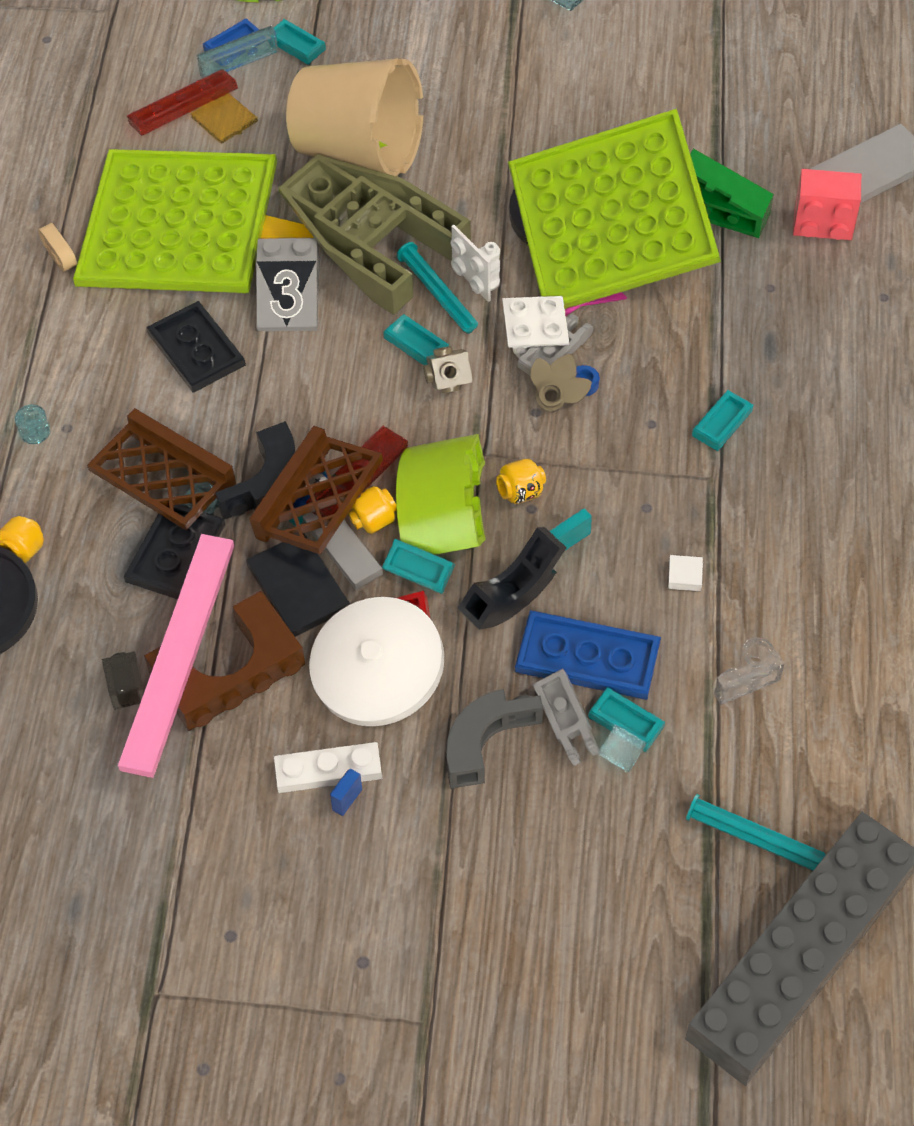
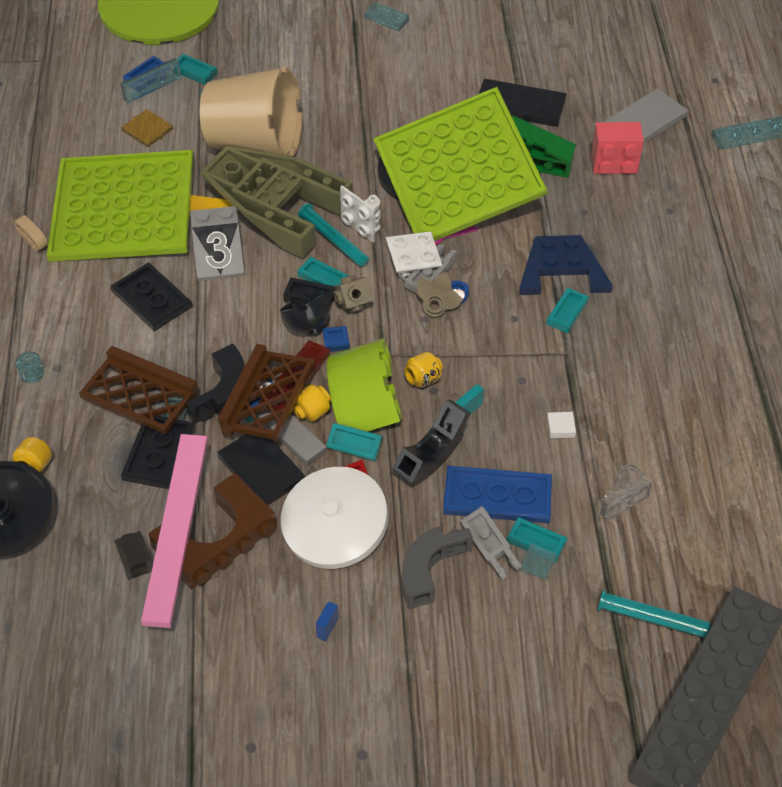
camera: 10 degrees left, 5 degrees down
(182, 102) = (112, 119): clear red tile -> none
(326, 766) = (307, 604): white plate -> none
(384, 391) = (306, 314): none -> black cylinder
(393, 363) = (299, 288): none -> black plate
(418, 427) = (336, 338): none -> blue tile
(721, 126) = (528, 102): none -> black tile
(728, 347) = (562, 257): none -> dark blue wing

